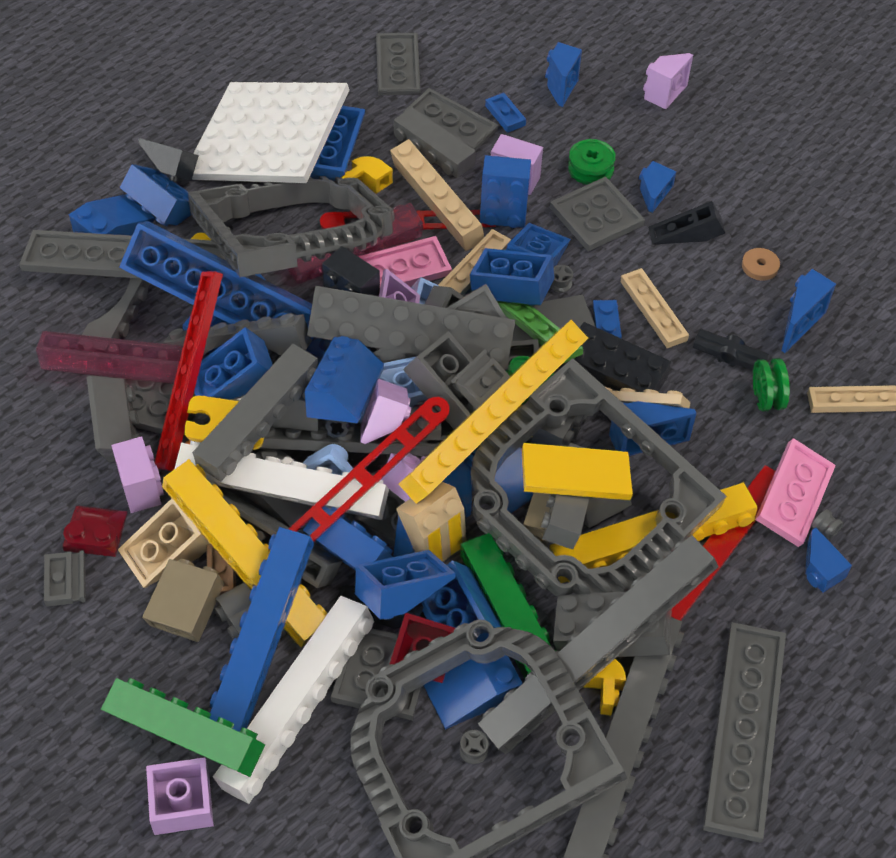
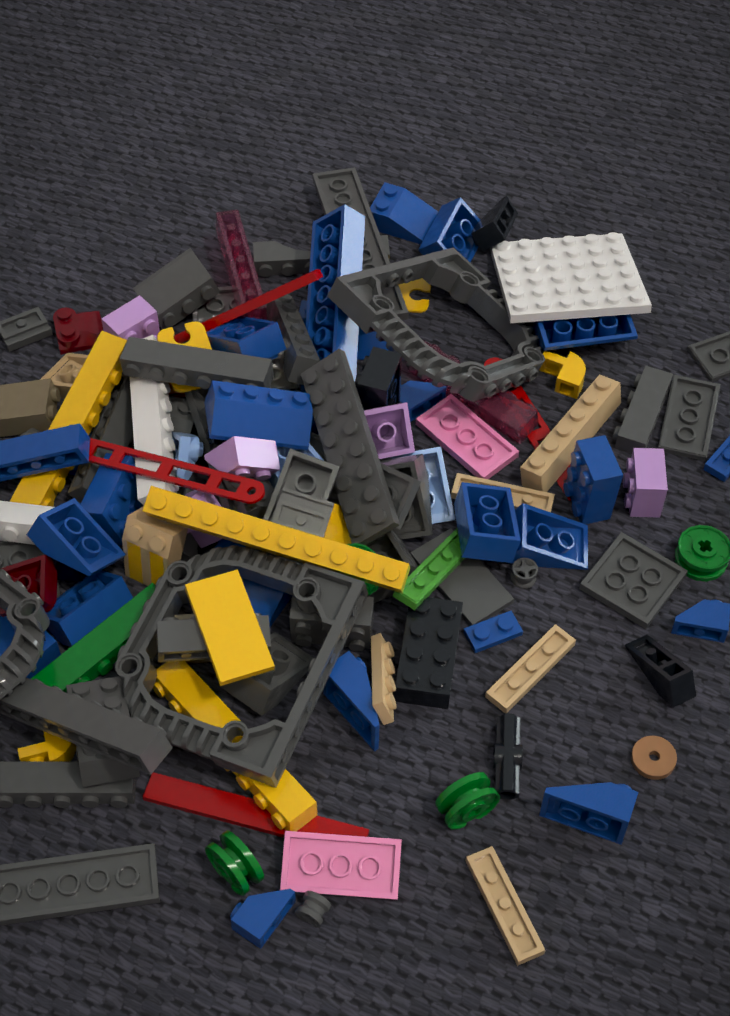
camera: 70 degrees right, 0 degrees up
(776, 561) = (234, 862): none -> green wheel

